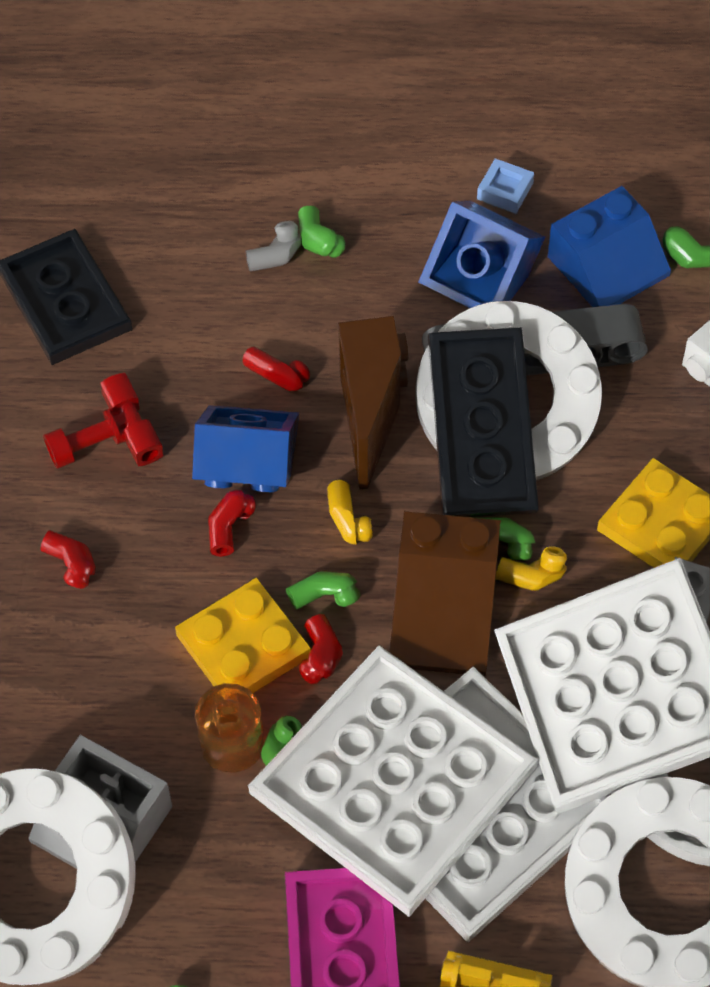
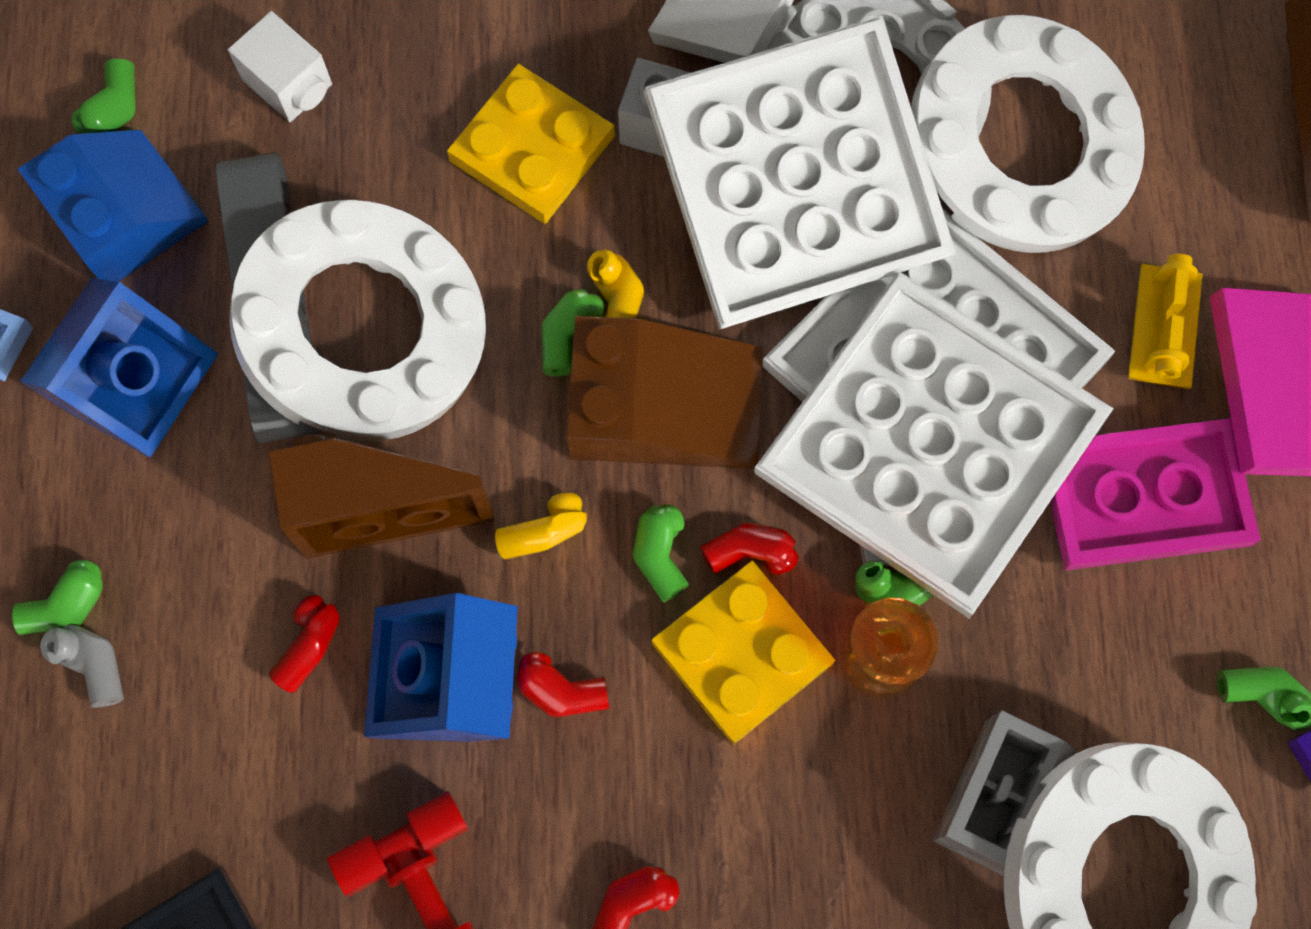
camera: 95 degrees left, 15 degrees up
(482, 423) = (416, 344): black tile -> none

